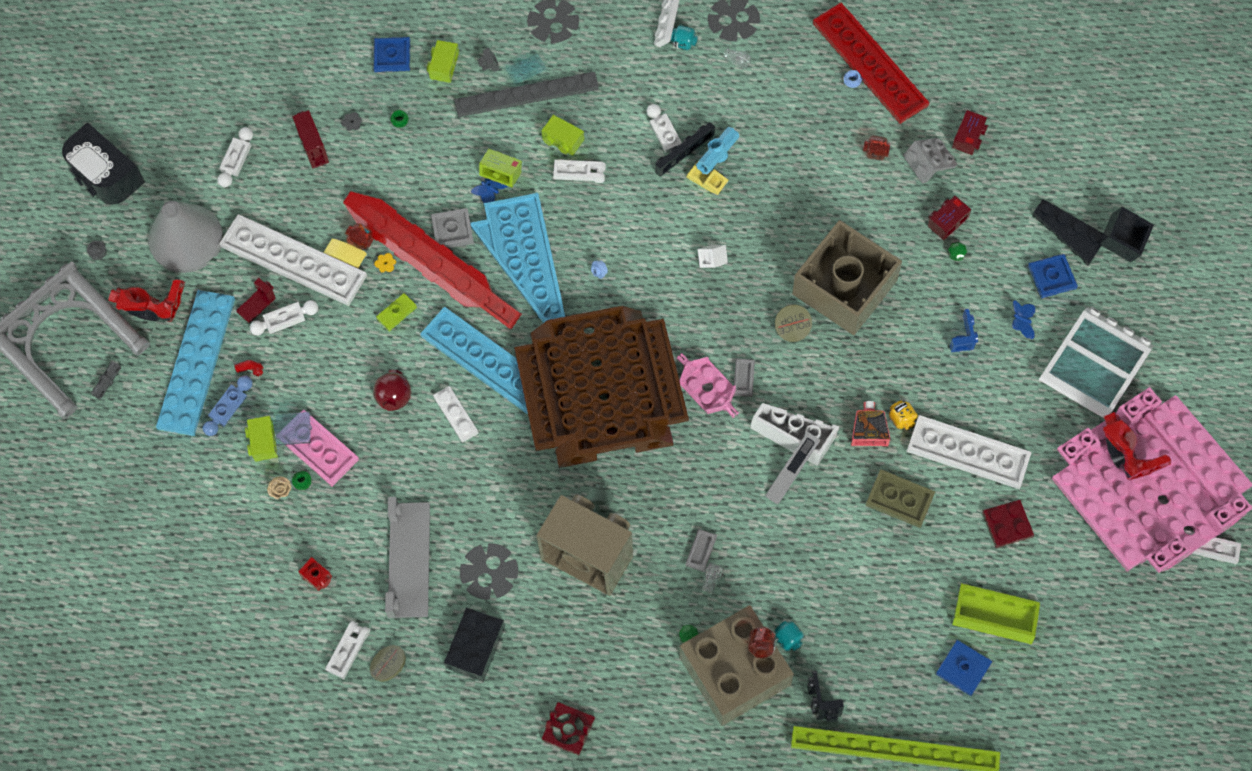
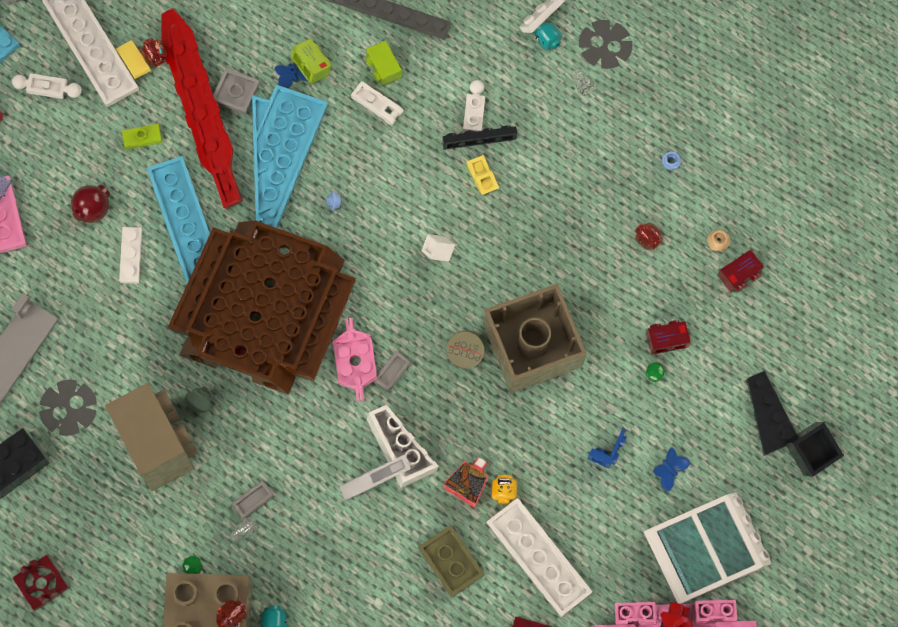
camera: 25 degrees right, 5 degrees up
(258, 301) = (33, 59): dark red bracket -> none
(382, 259) = (157, 85): yellow plant -> none
(717, 150) = (506, 156): medium azure piece -> none
(871, 62) = (697, 155): red plate -> none
(928, 157) = (689, 273): light grey bracket -> none
(933, 124) = (717, 245): none -> tan plate
(1052, 276) = (724, 445): blue plate -> none

